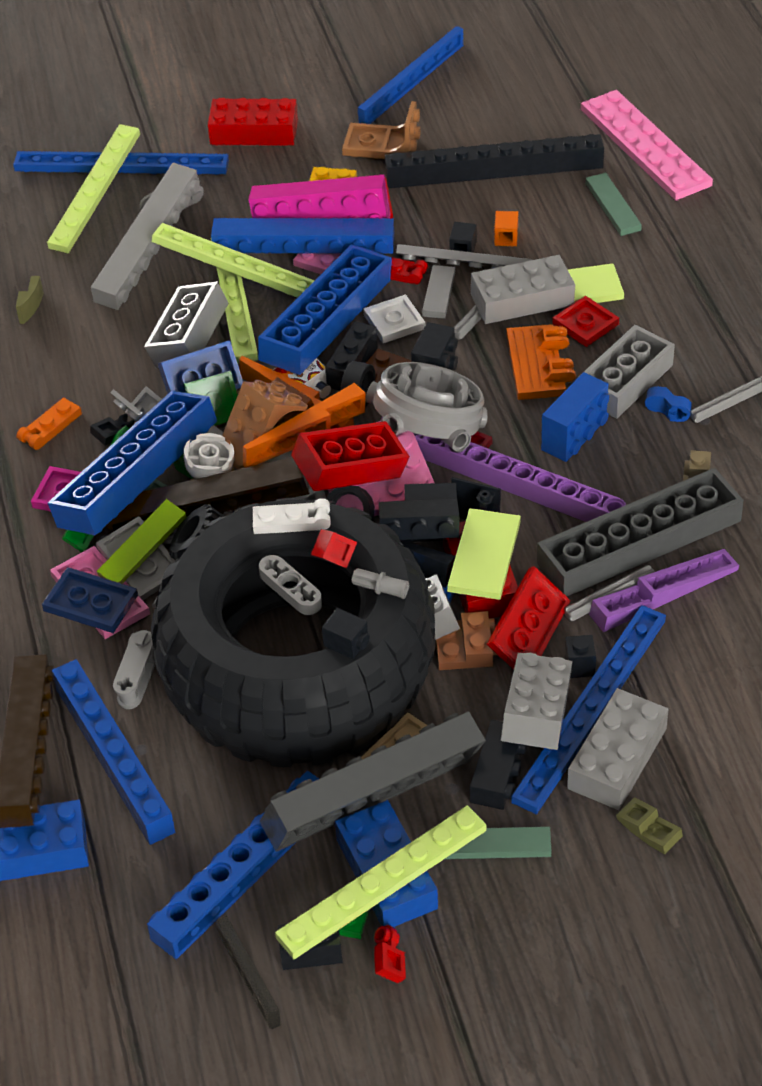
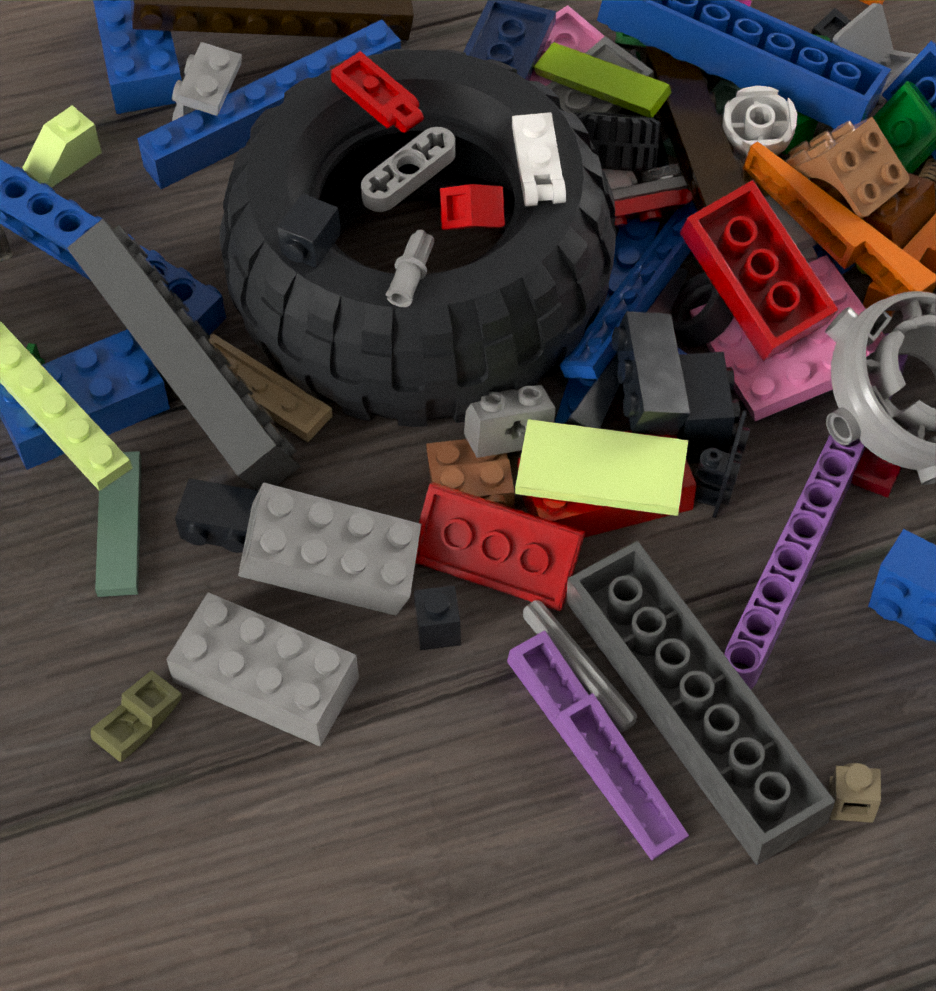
camera: 85 degrees right, 10 degrees up
(101, 782) = (206, 80): none -> light grey bracket
(131, 891) = (62, 147): none -> yellowish green slope
(218, 598) = (377, 92): none -> red hinge
(587, 709) = (375, 647): blue plate -> none

